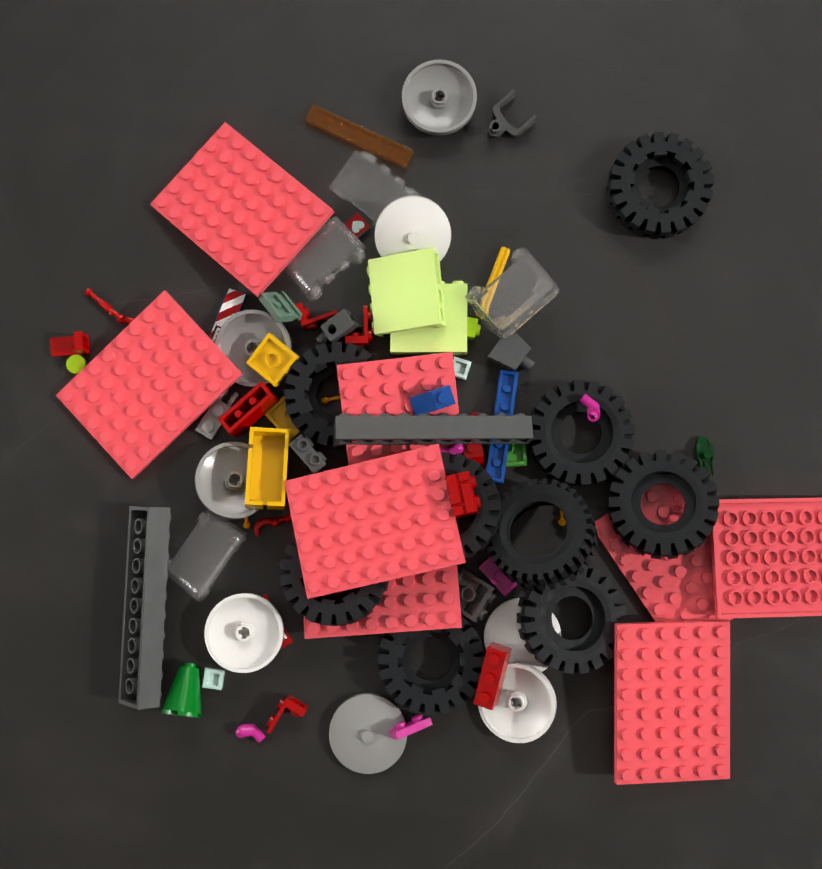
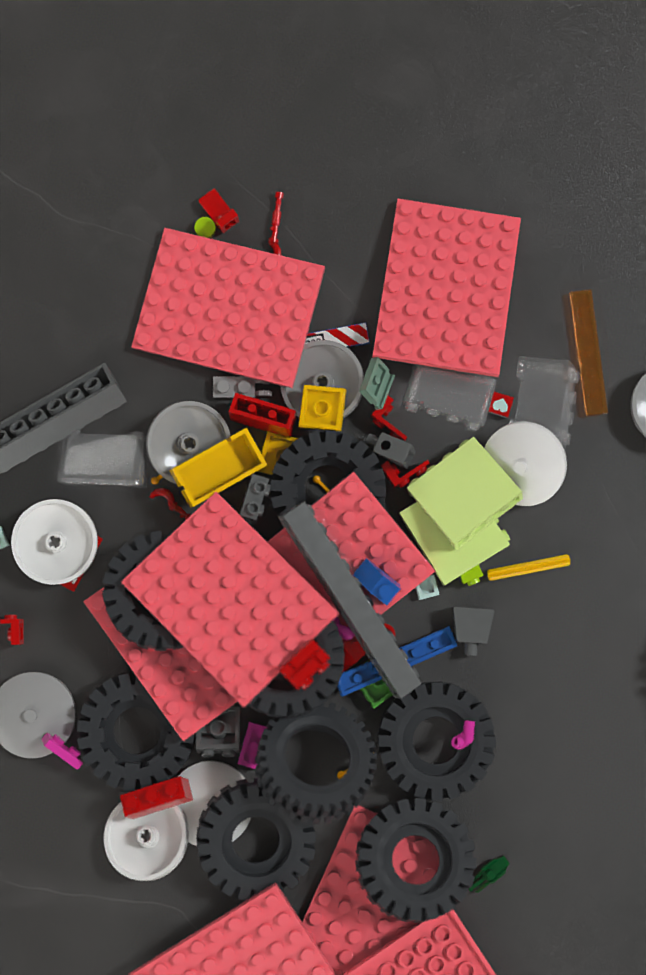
camera: 55 degrees right, 0 degrees up
(513, 295) = (526, 596): clear windscreen -> none

